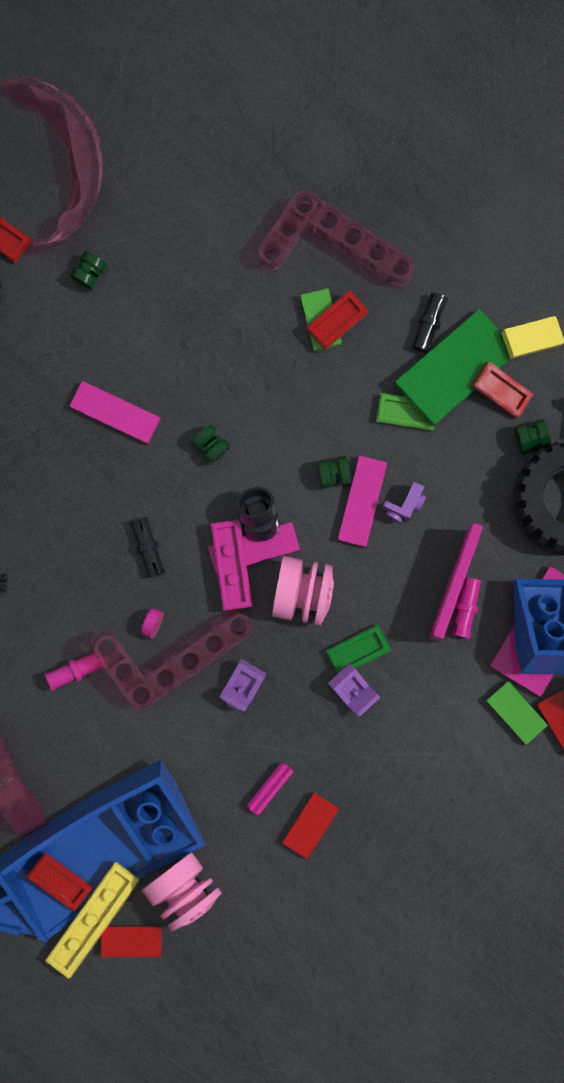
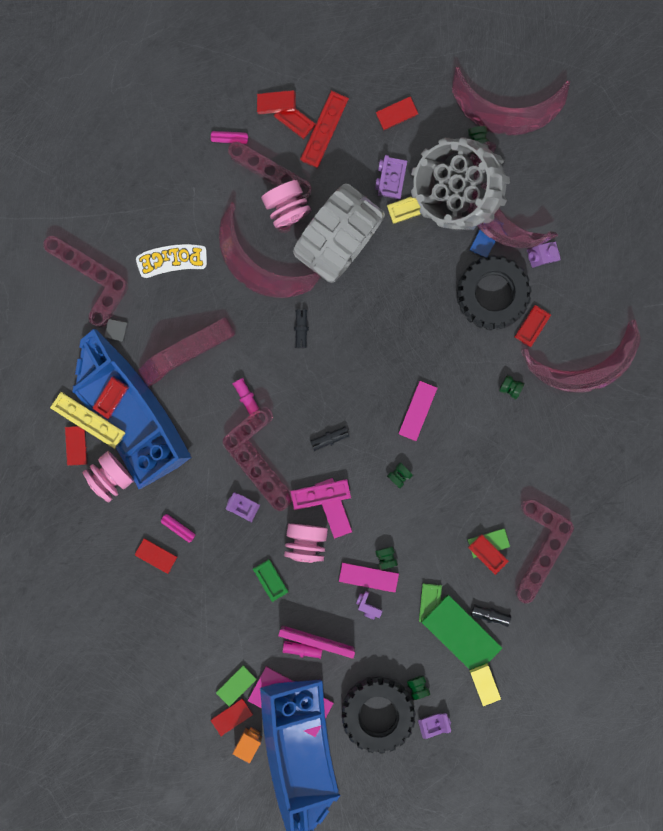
camera: 85 degrees right, 5 degrees up
(152, 623) = (280, 445): dark pink tile -> none
(258, 514) = (354, 510): black wheel -> none
(353, 690) = (243, 579): medium lavender bracket -> none
(502, 390) = (448, 666): tile -> none

